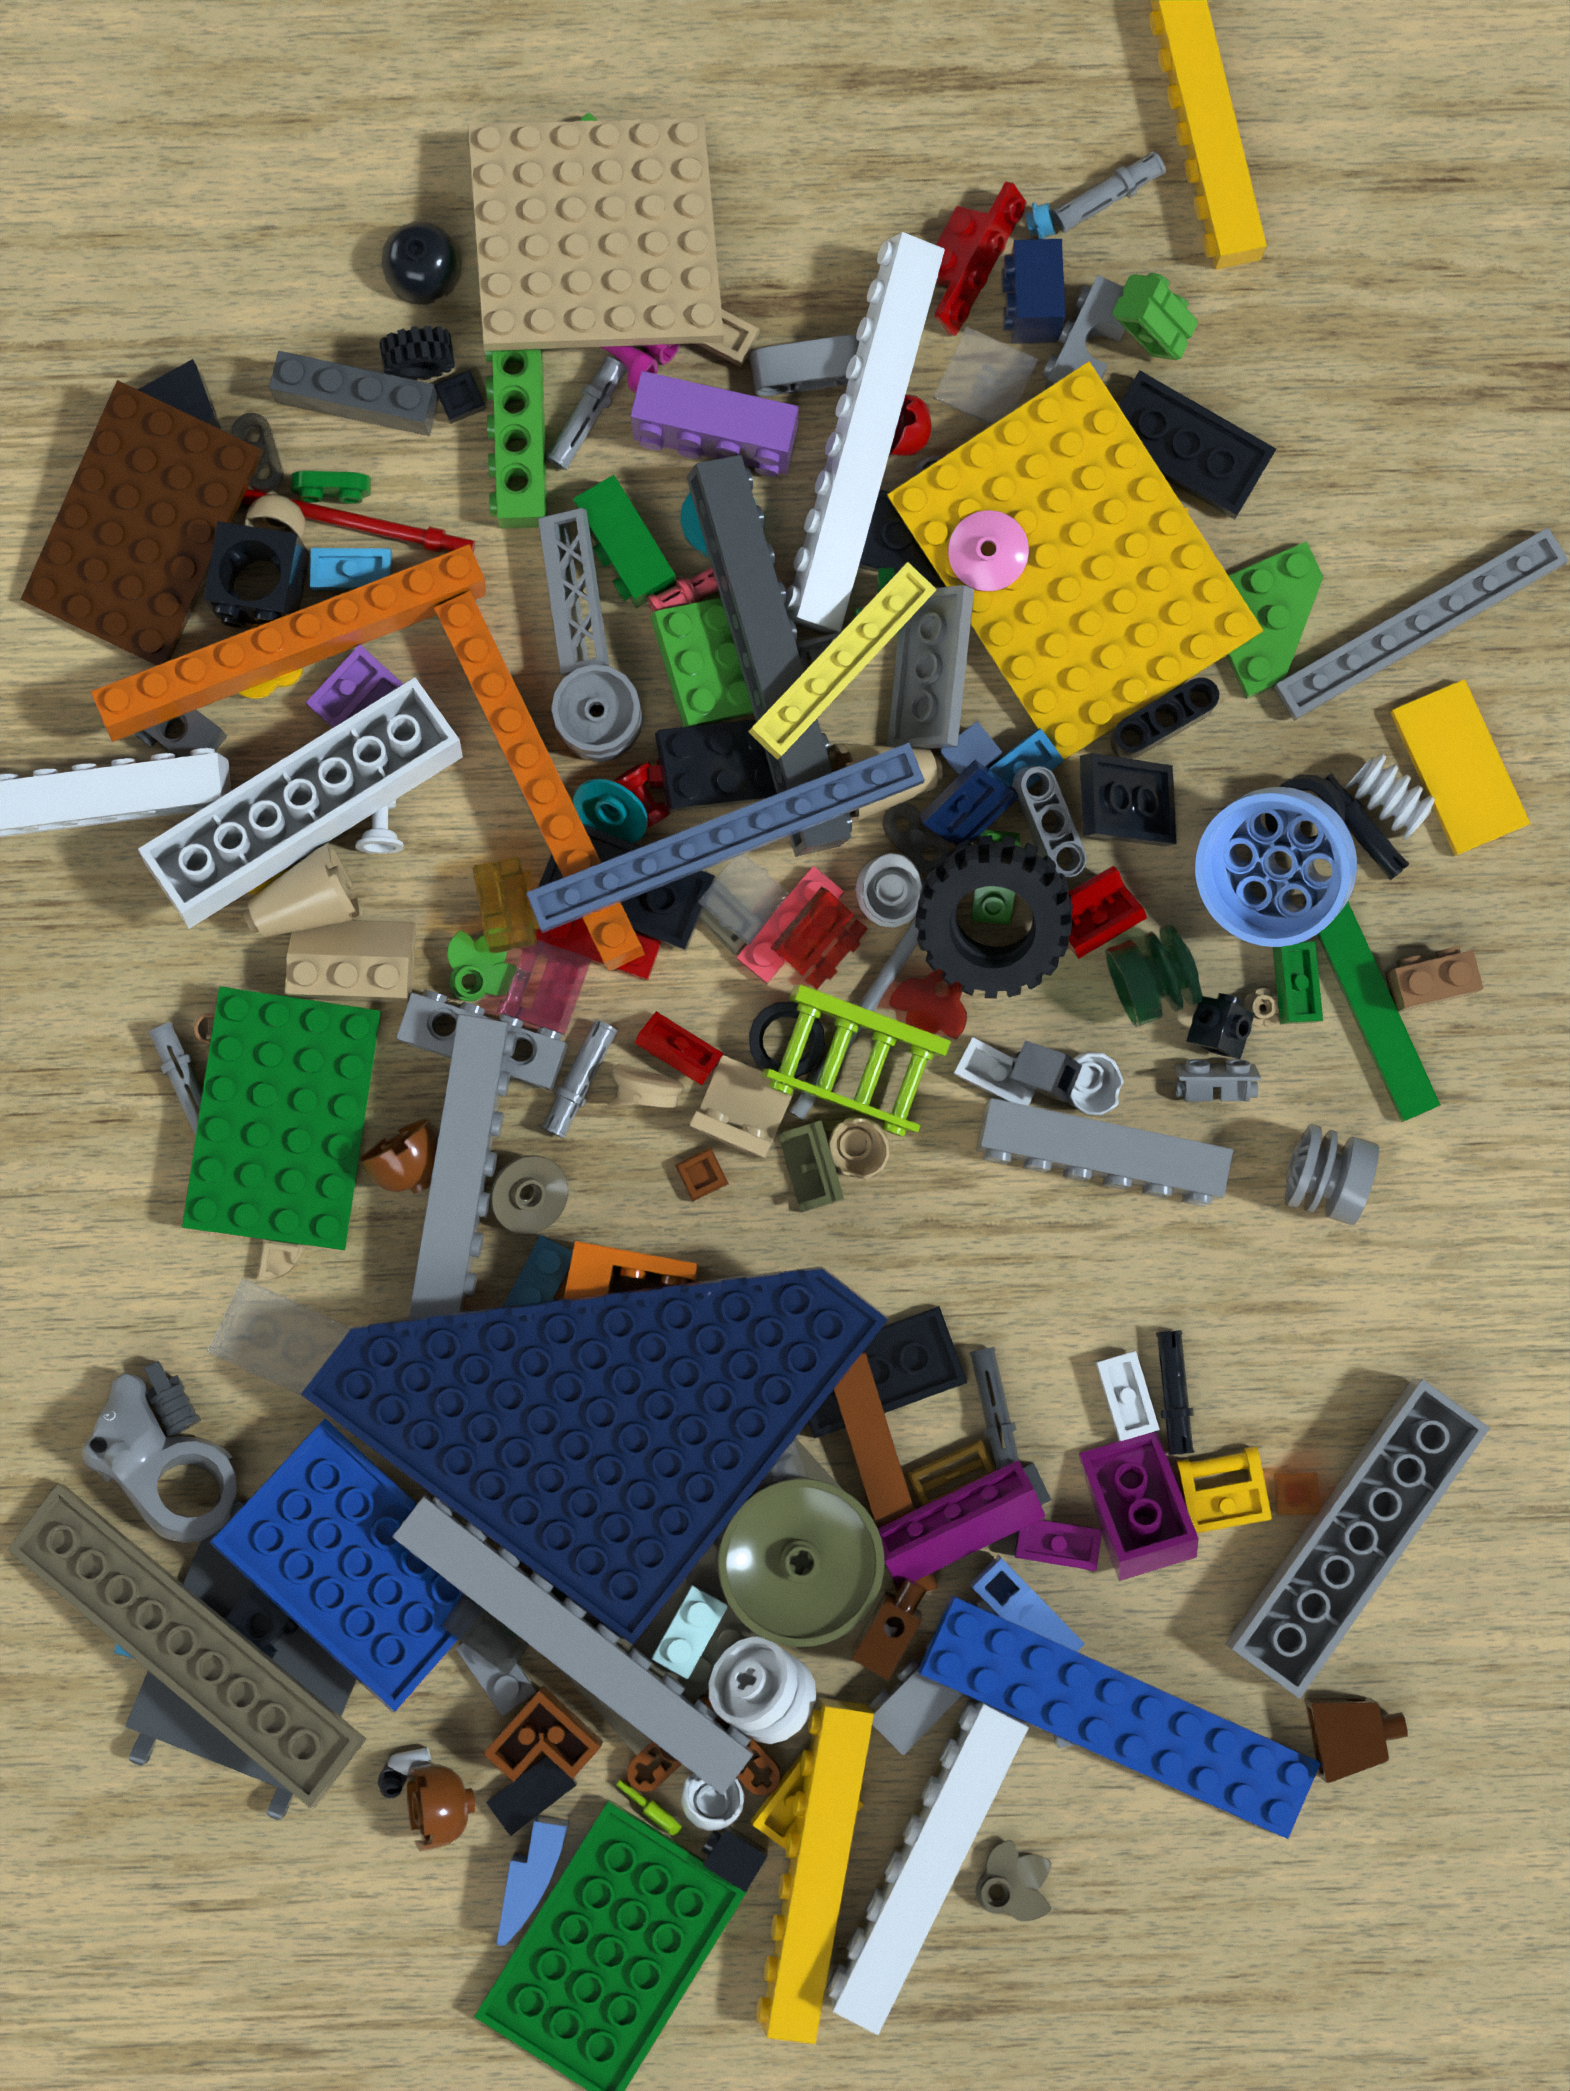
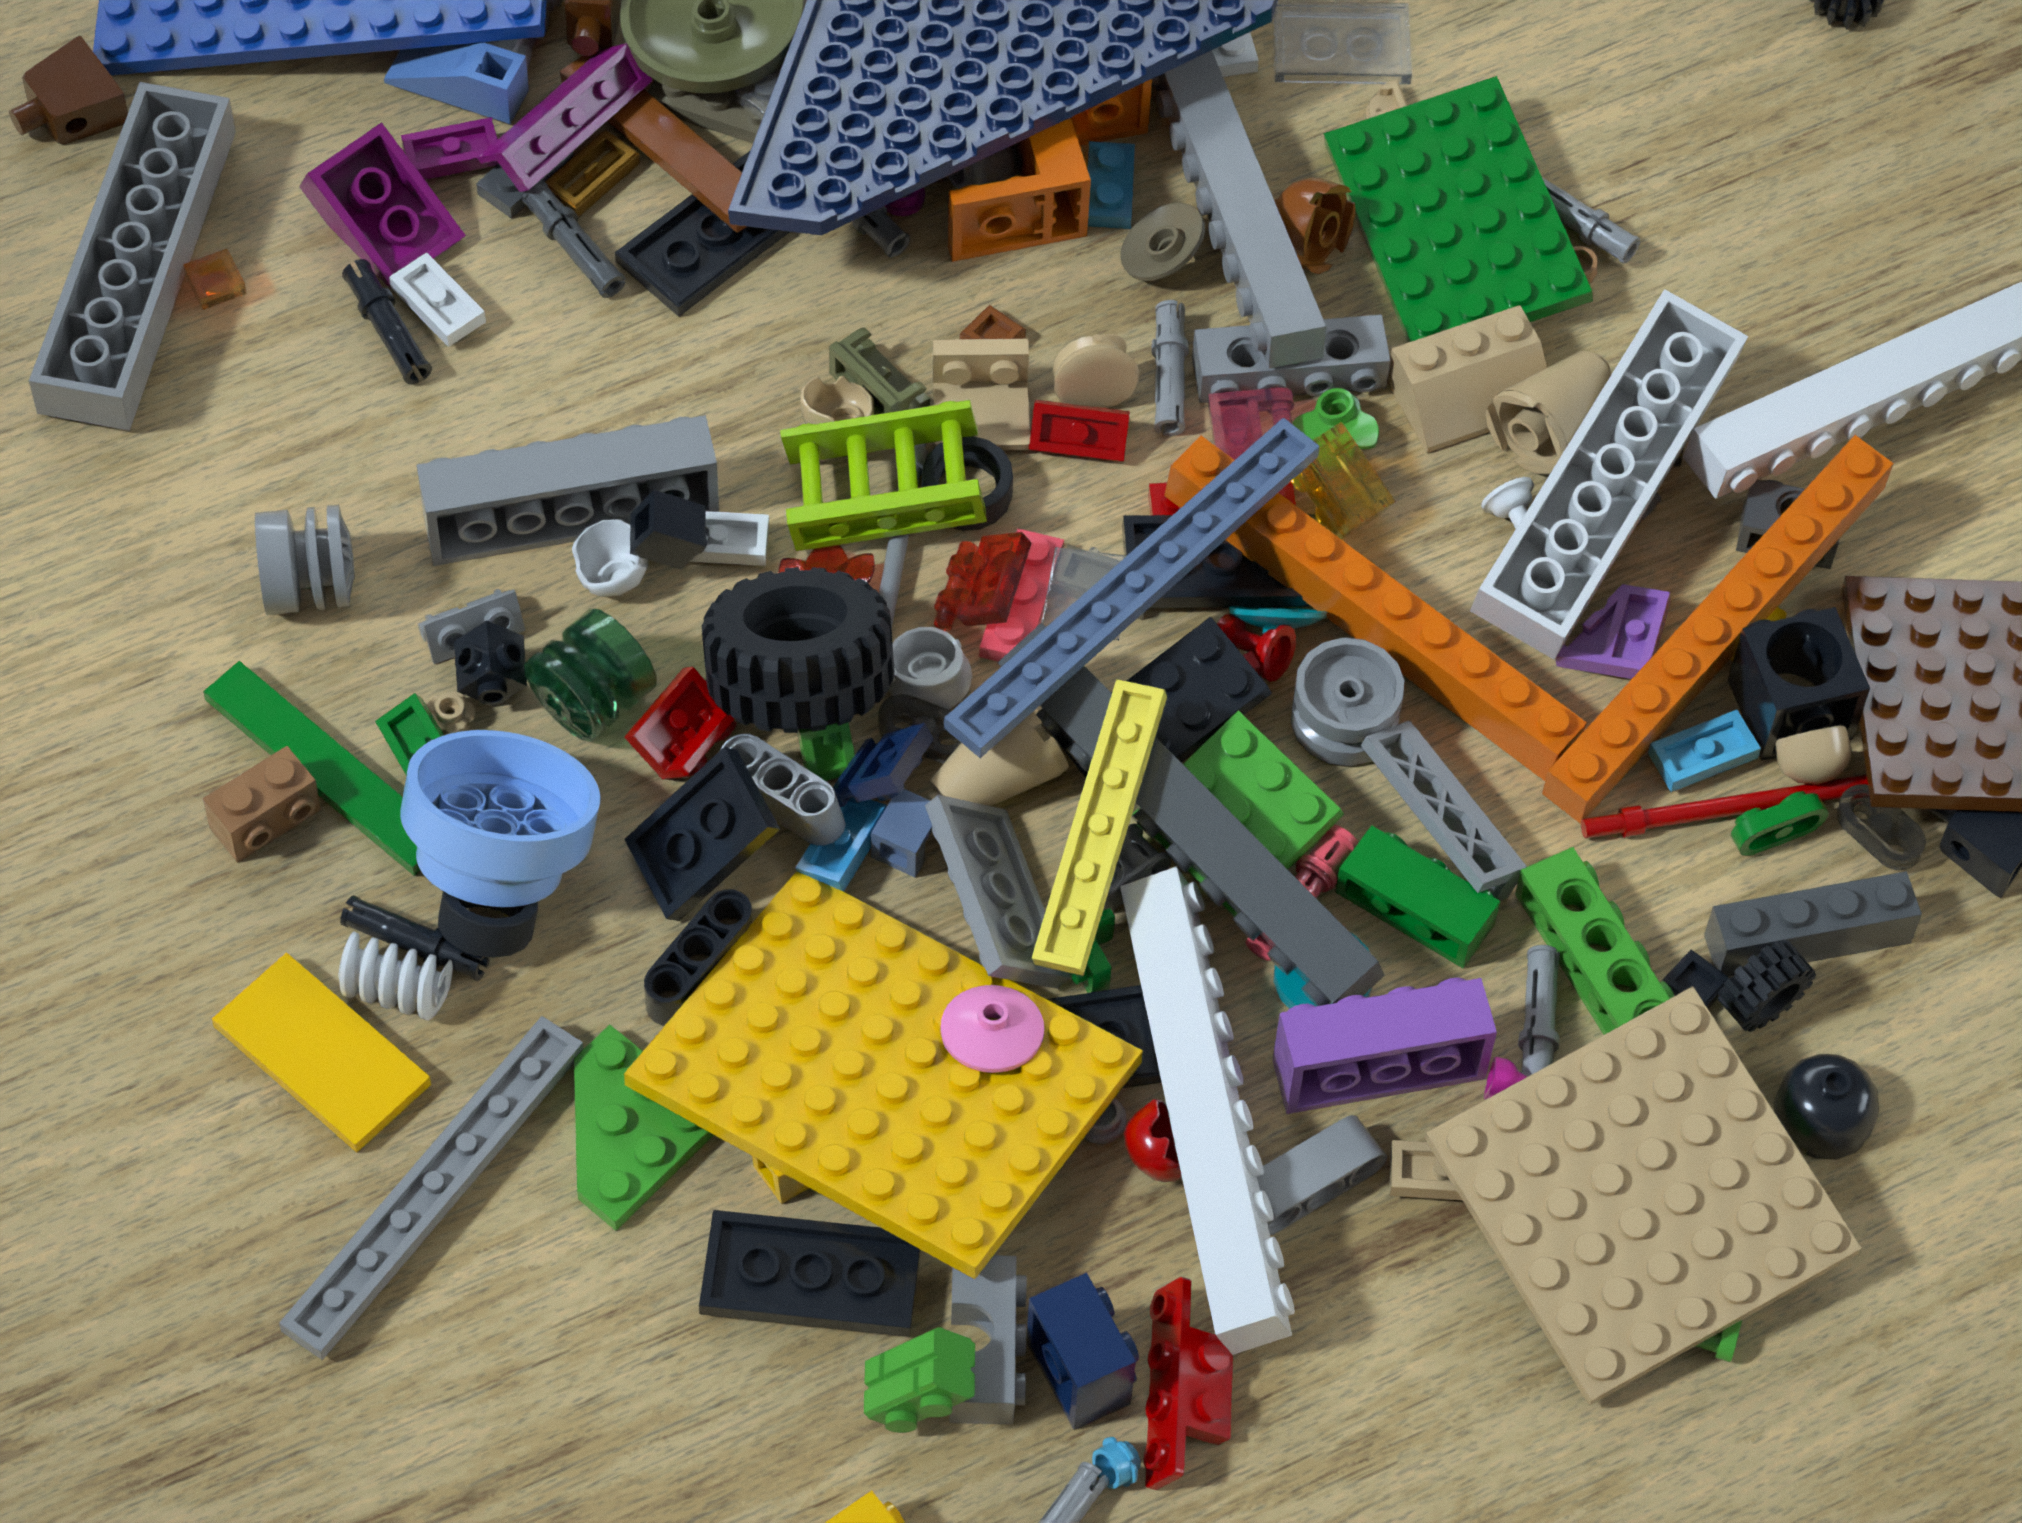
camera: 155 degrees right, 25 degrees down
(985, 377) = (1093, 1236): clear piece -> none
(1225, 1504) = (289, 243): yellow plate -> none

